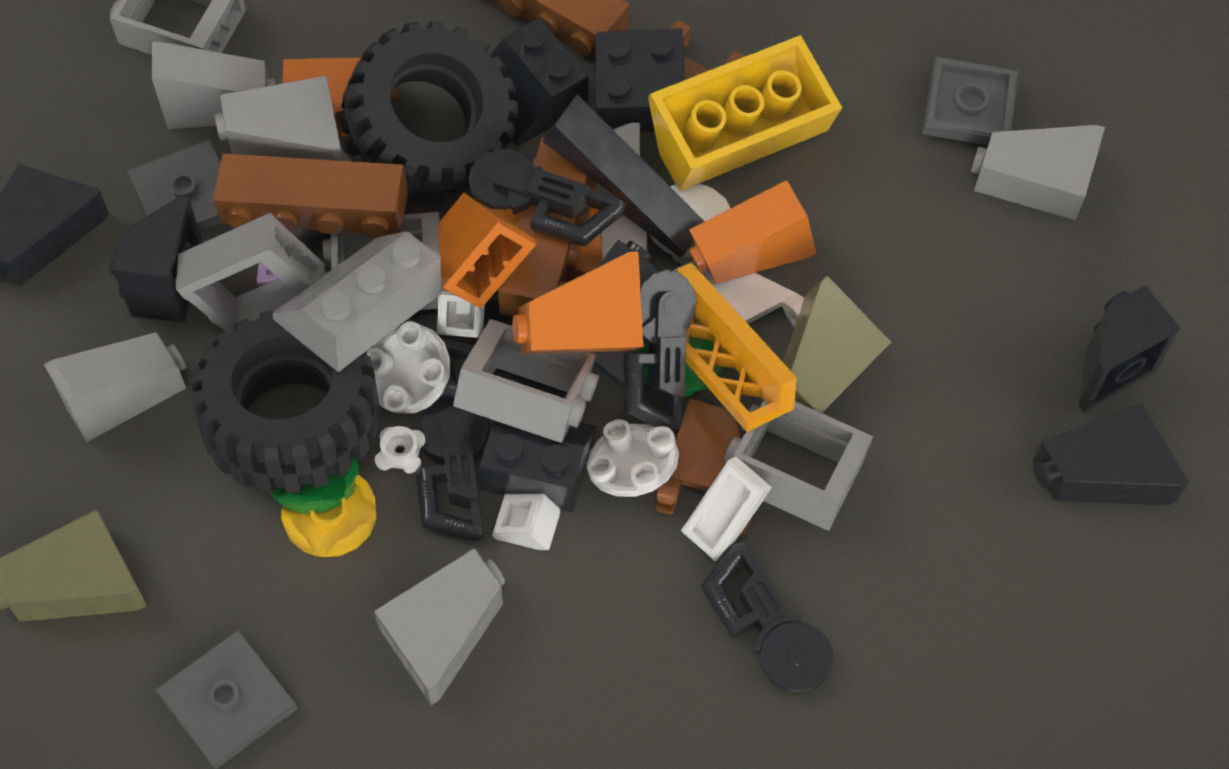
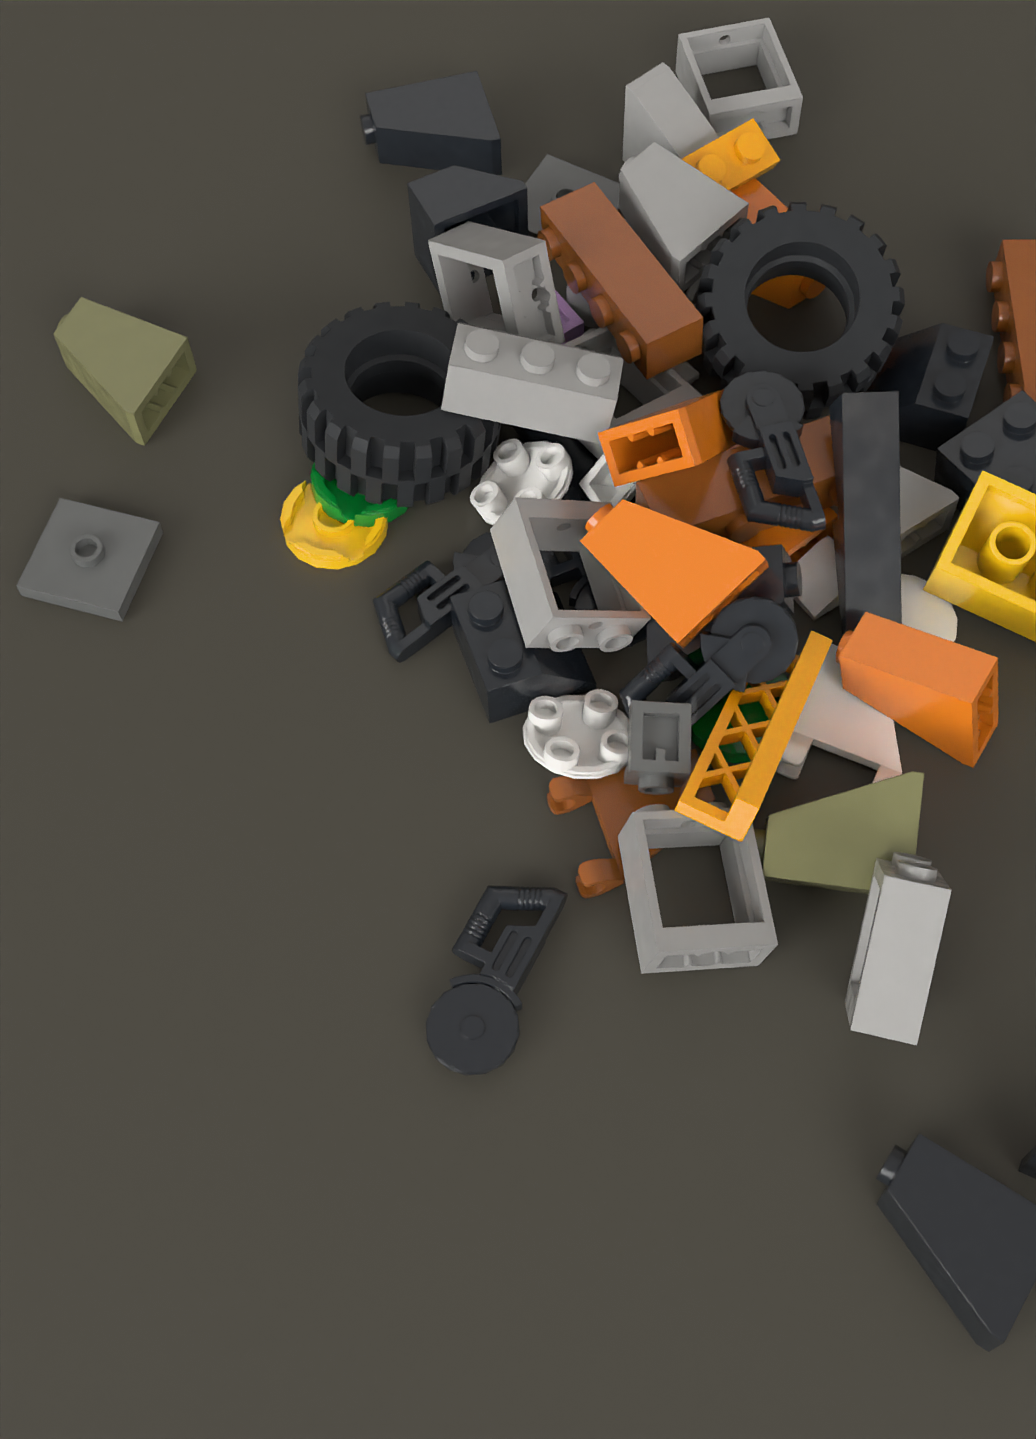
camera: 60 degrees right, 0 degrees up
(116, 381) = (316, 268): light grey slope -> none
(260, 58) = (735, 156): none -> light orange plate
(396, 437) = (437, 520): white plate -> none
(442, 620) = (278, 678): light grey slope -> none
(527, 520) = (446, 688): white slope -> none
(688, 412) = (658, 746): none -> dark grey bracket
(726, 508) = (581, 850): white tile -> none
(928, 369) = (897, 948): none -> light grey window

